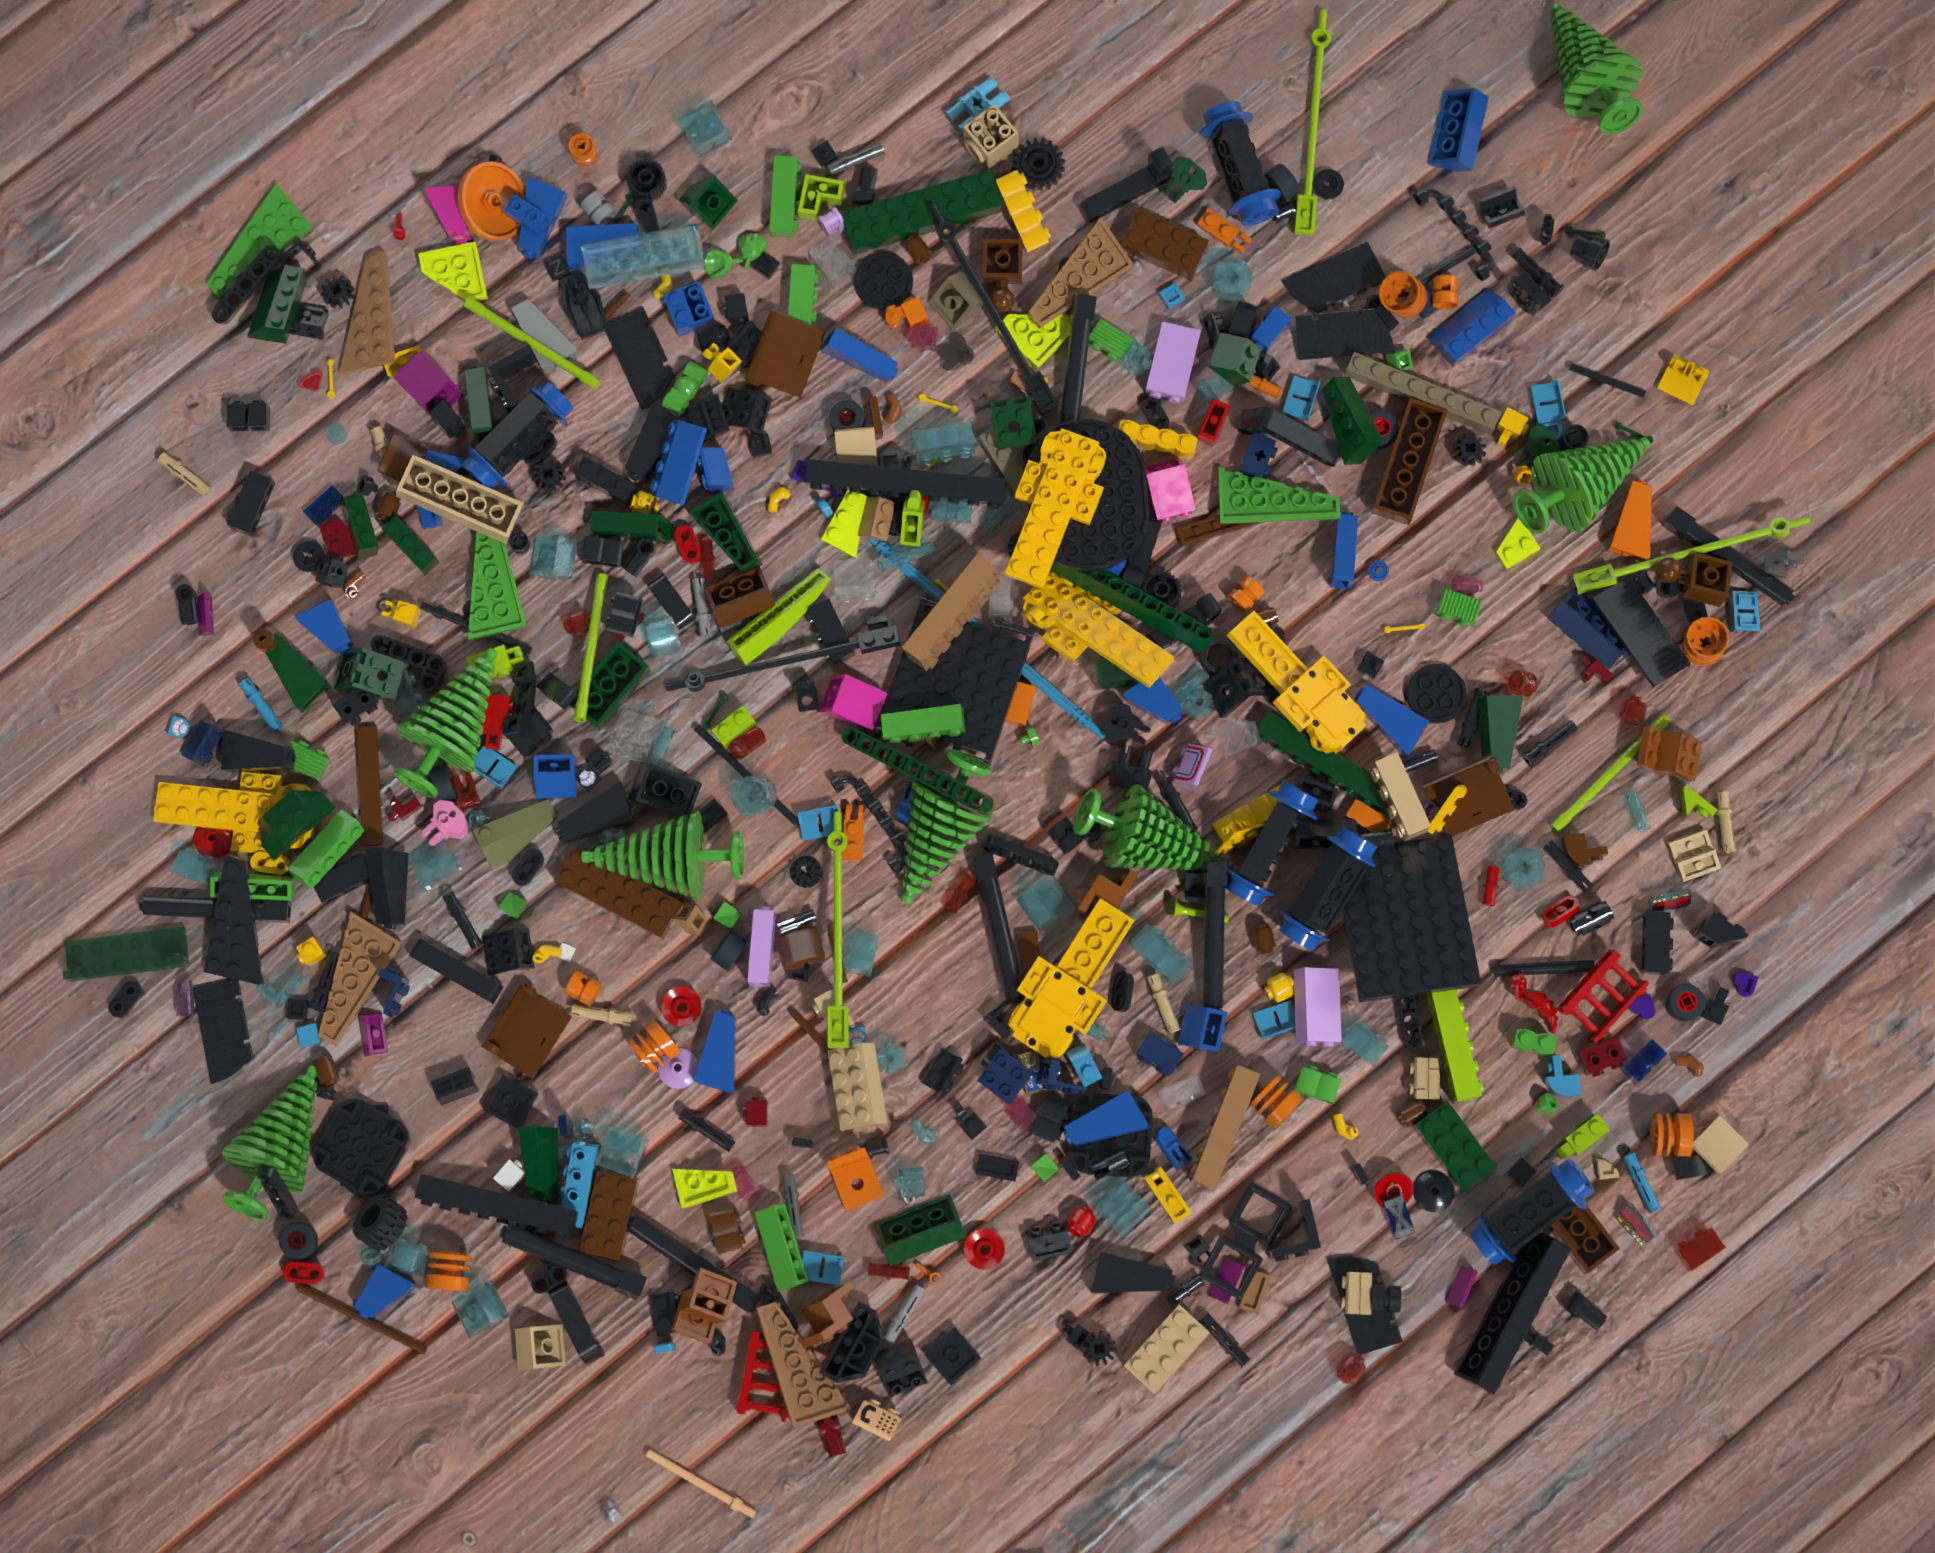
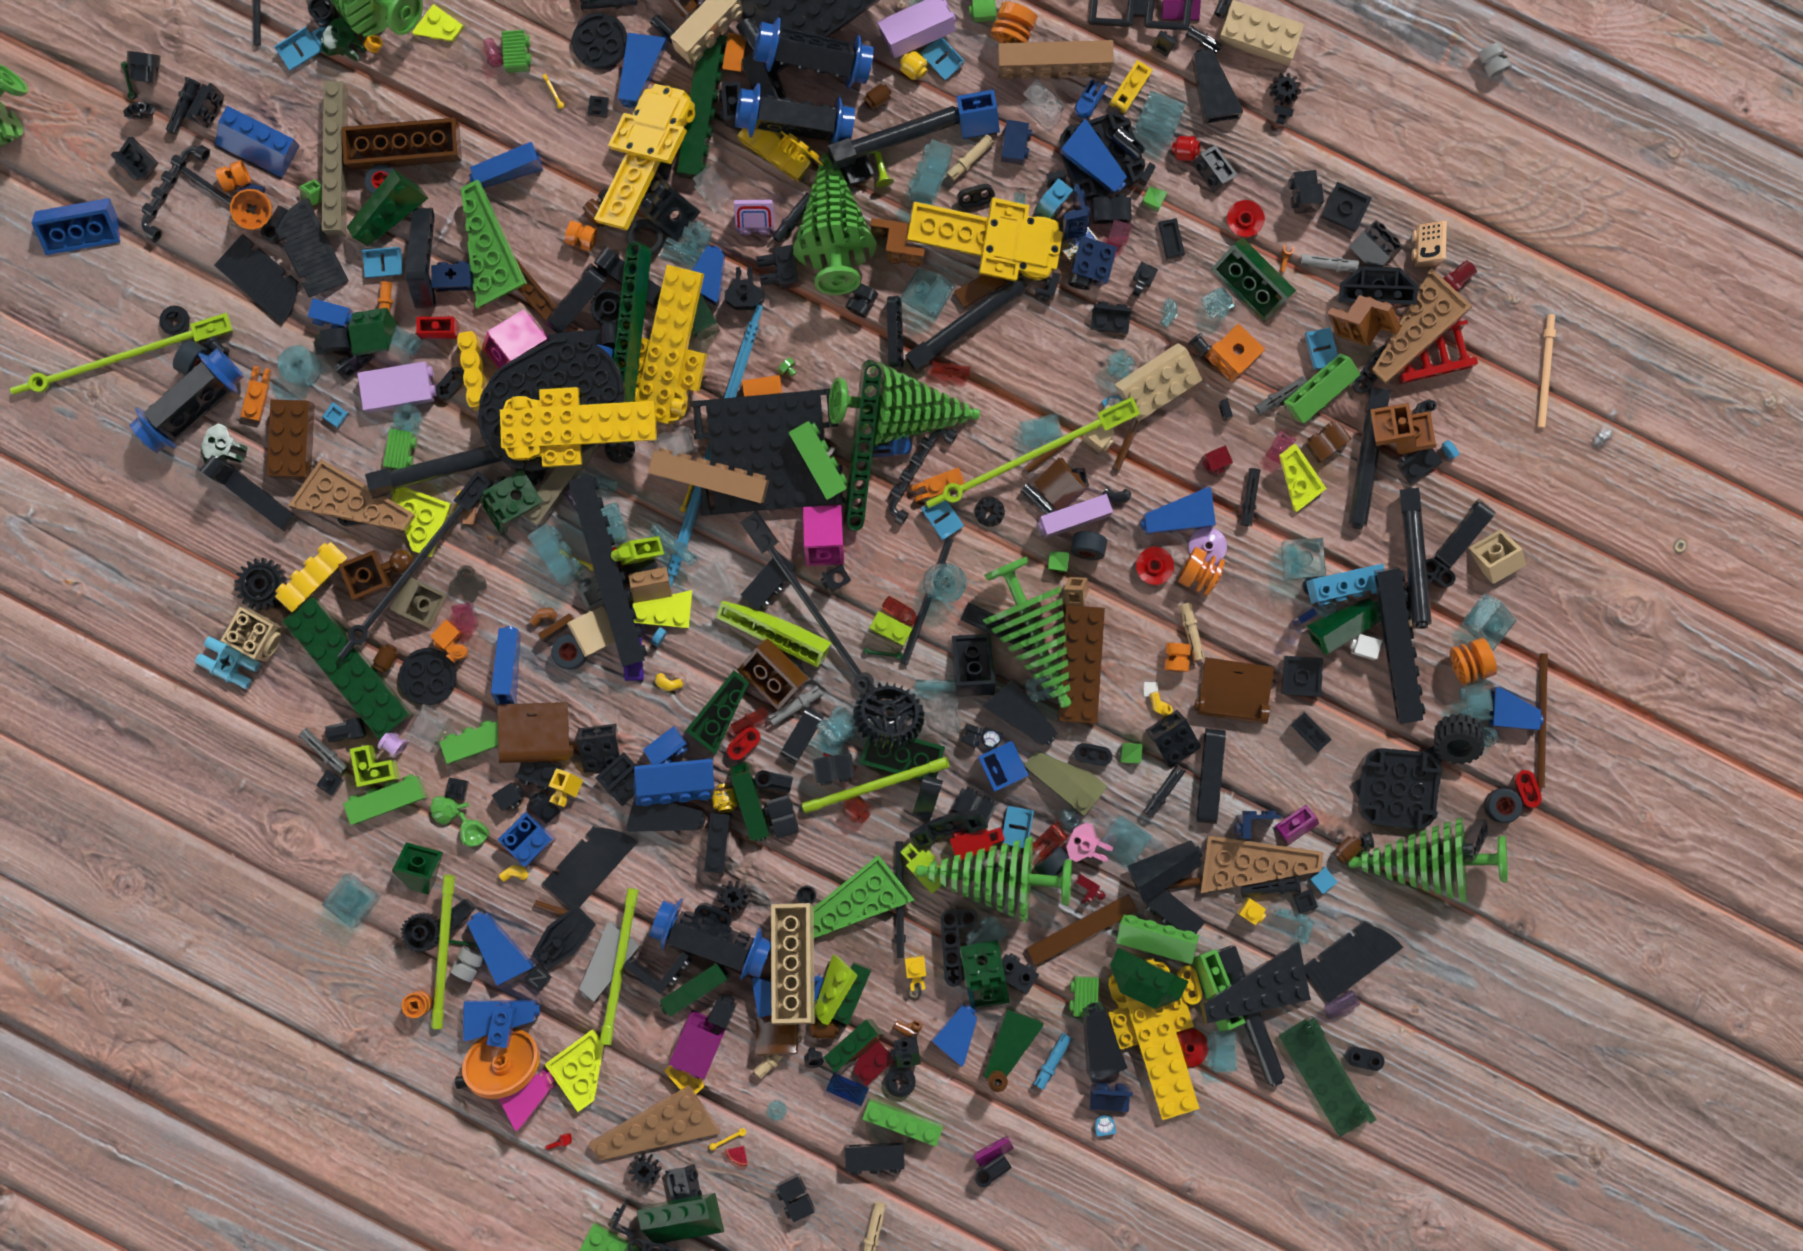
camera: 115 degrees left, 5 degrees up
(270, 542) = (902, 1122): none -> bright green brick
(419, 529) = (834, 989): none -> lime wing
(553, 557) = (807, 859): clear light blue slope -> none
(582, 1127) = (1296, 604): clear light blue tile -> none
(609, 1216) = (1362, 546): reddish brown brick -> none
(636, 682) = (889, 728): none -> black gear
(642, 256) = (496, 901): clear light blue brick -> none
(671, 216) = (447, 891): none -> lime piece
(685, 388) = (602, 809): bright green piece -> none
(760, 445) = (625, 719): black tile -> none
(877, 622) = (745, 544): black tile -> none
(887, 1271) = (1300, 294): clear red pin -> none
(922, 398) = (521, 595): yellow hinge -> none
(985, 1321) = (1306, 192): none -> black brick
(1184, 564) = (576, 299): none -> black beam
(1267, 367) = (366, 302): black tile -> none
(1378, 571) = (511, 133): blue tile -> none
(1467, 443) = (365, 93): black gear -> none
(1512, 425) = (332, 70): yellow brick -> none

